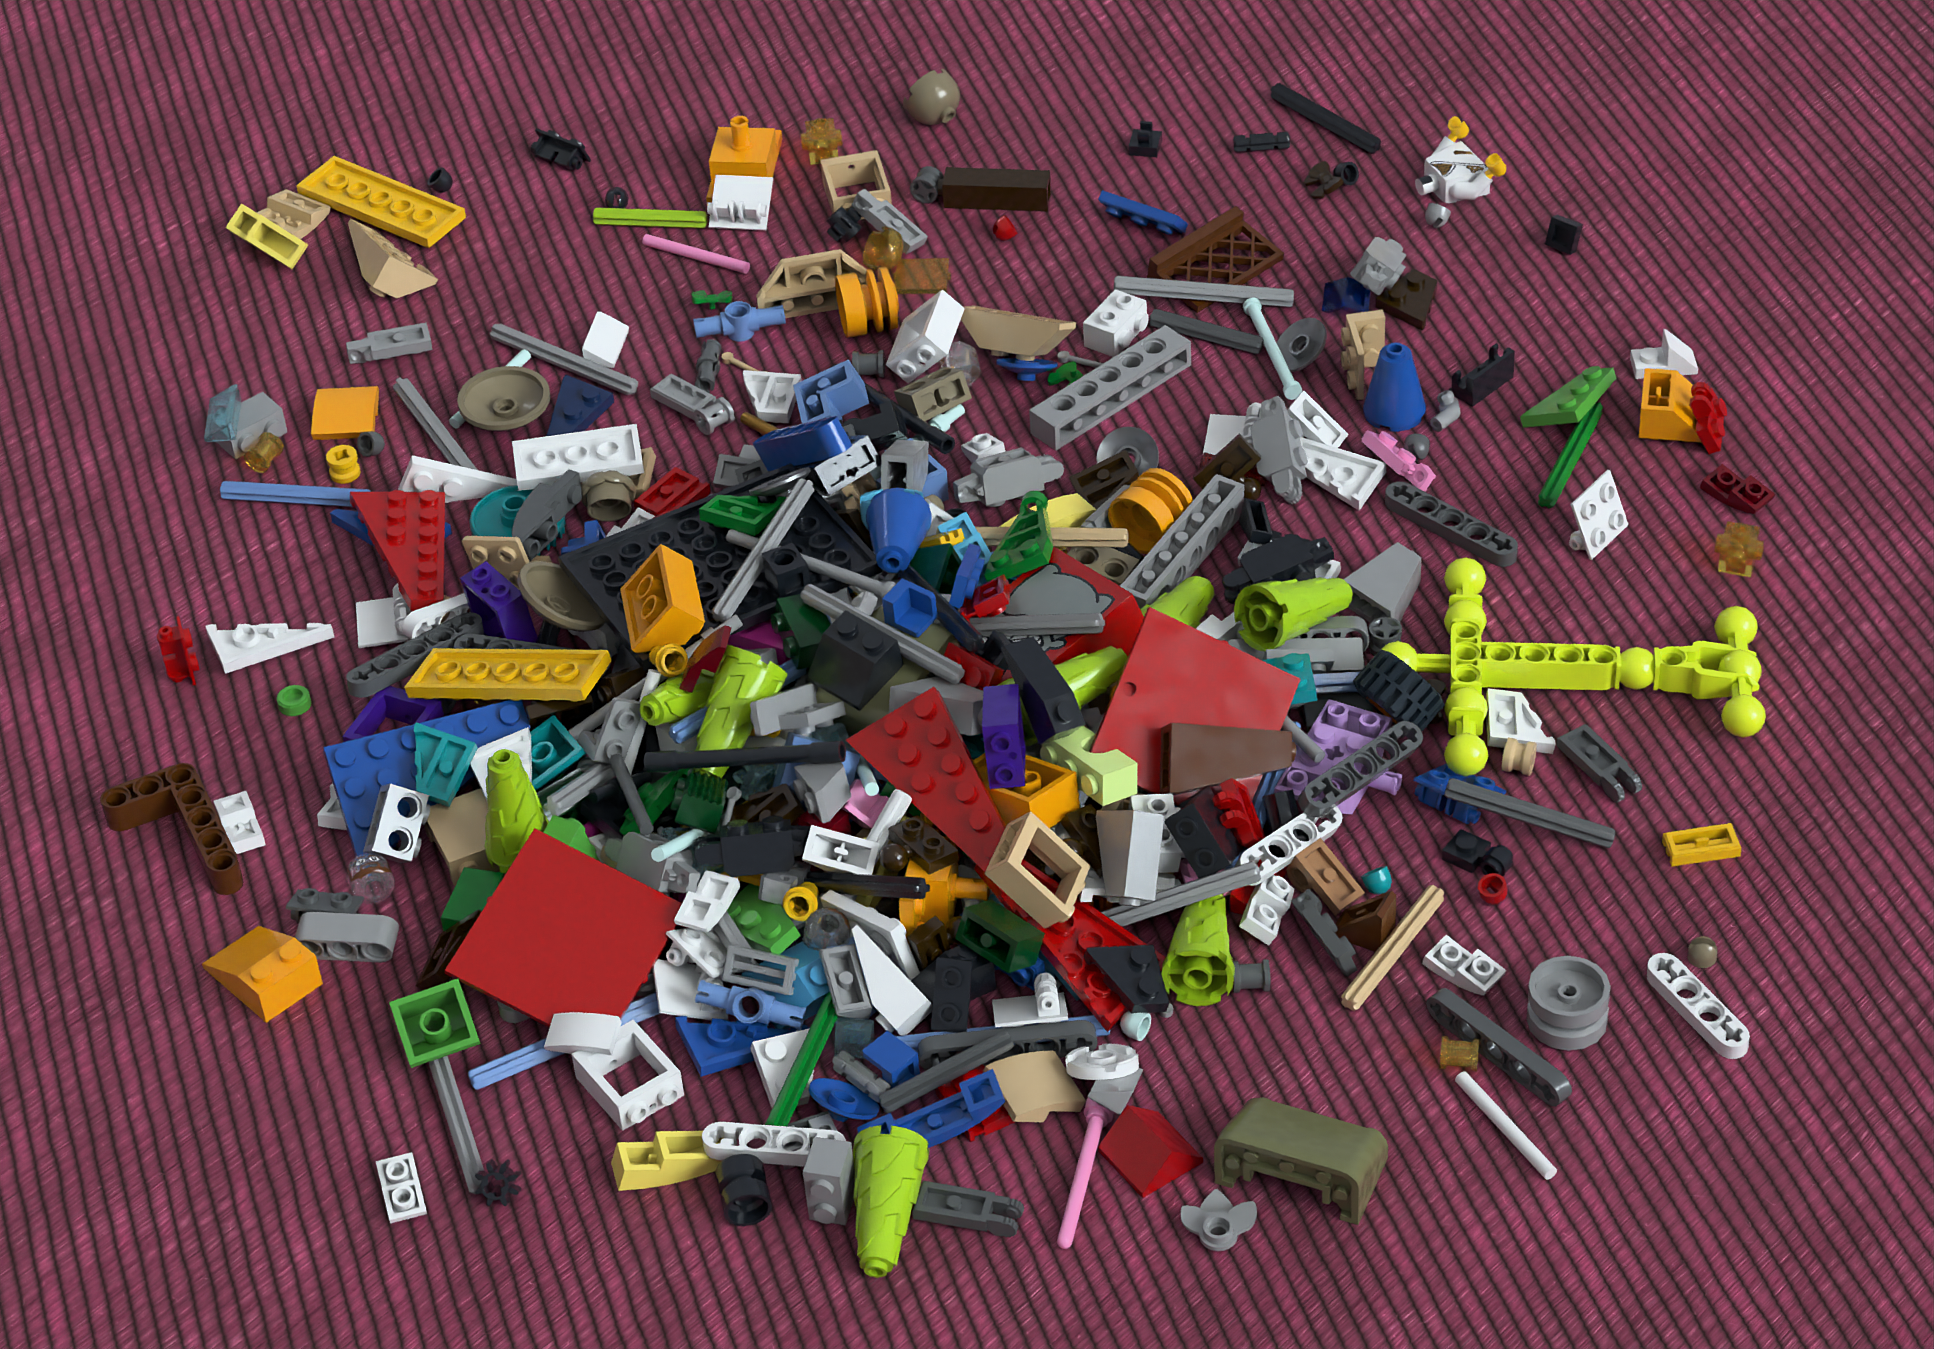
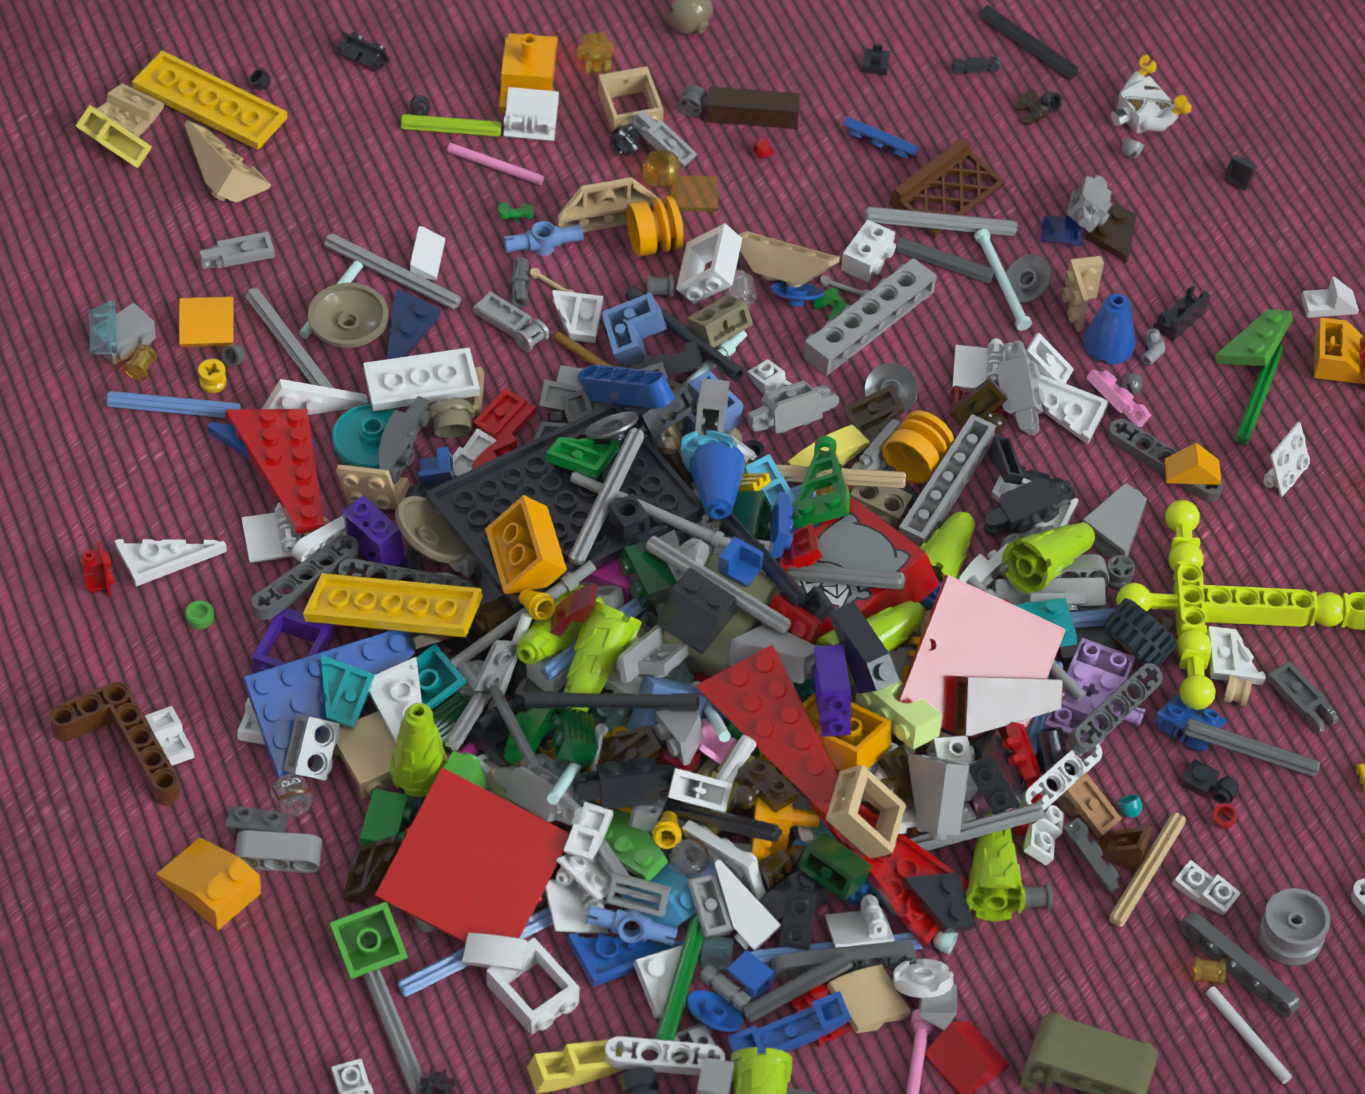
camera: 10 degrees left, 10 degrees up
(1481, 524) = (1193, 466): none -> light orange slope

